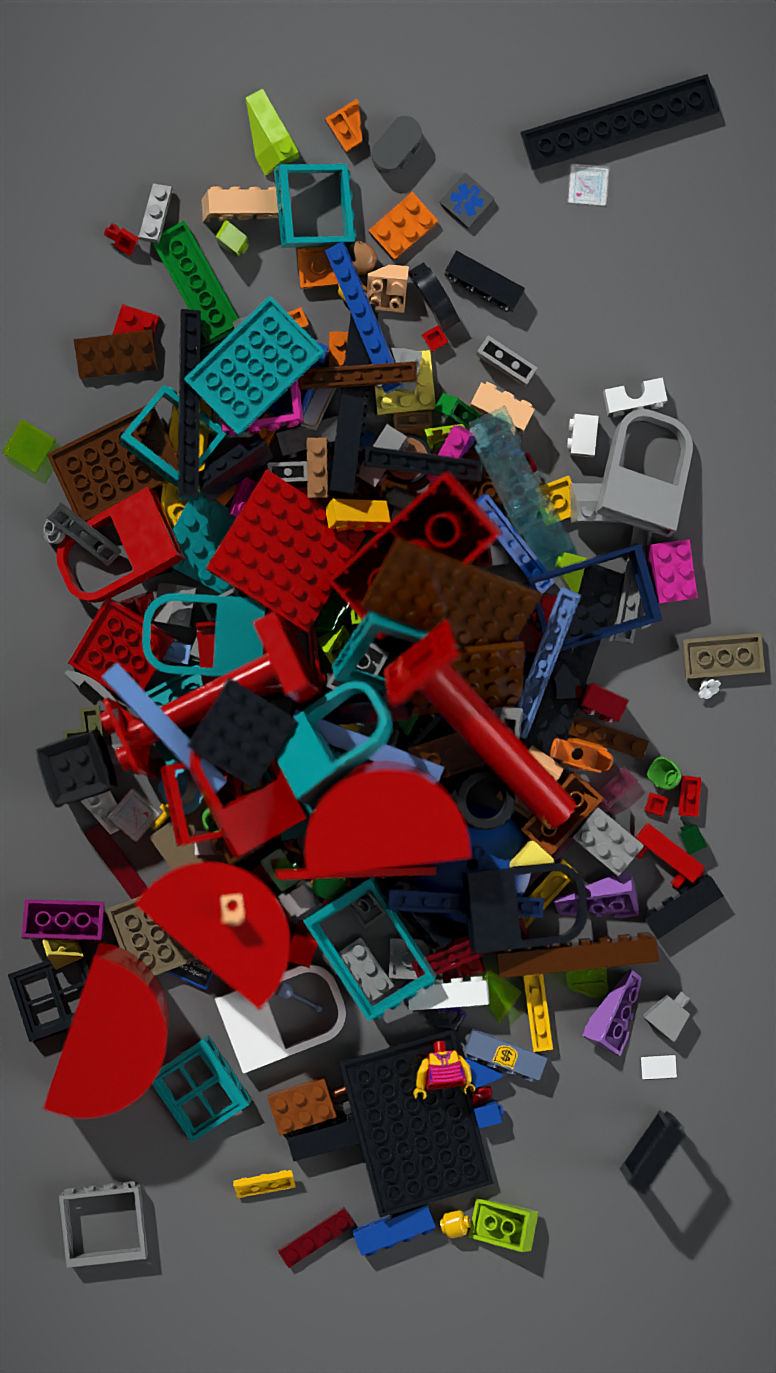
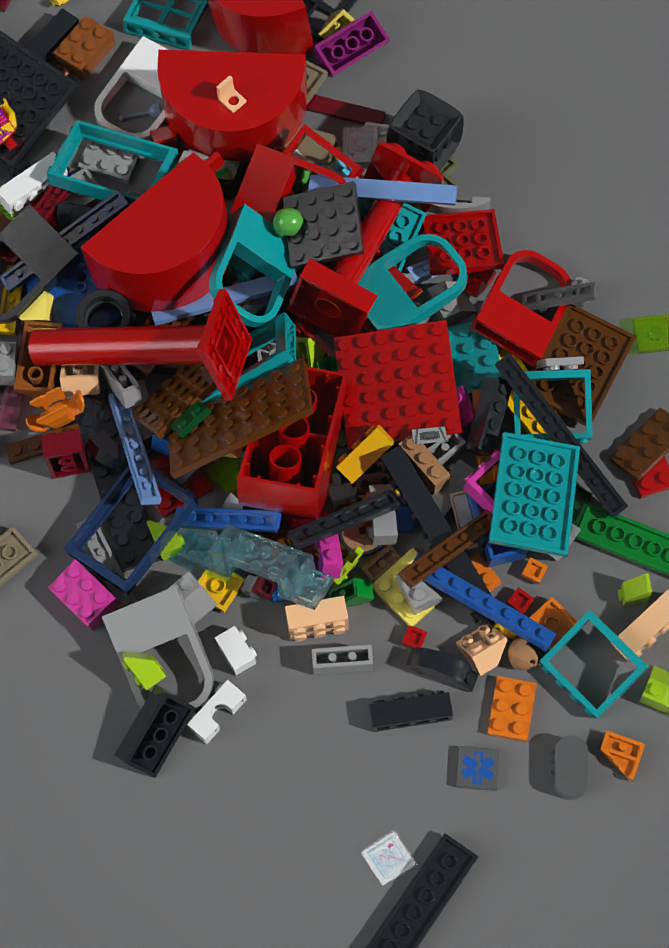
camera: 145 degrees right, 20 degrees down
(137, 466) = (566, 363): none -> light grey plate
(270, 758) = (287, 222): none -> bright green hair
(296, 484) = (429, 435): none -> sticker
(327, 304) = (520, 600): none -> red plate
(488, 636) = (190, 419): none -> dark green plate
(670, 465) = (145, 667): none -> lime slope
(696, 414) = (155, 731): none -> black slope

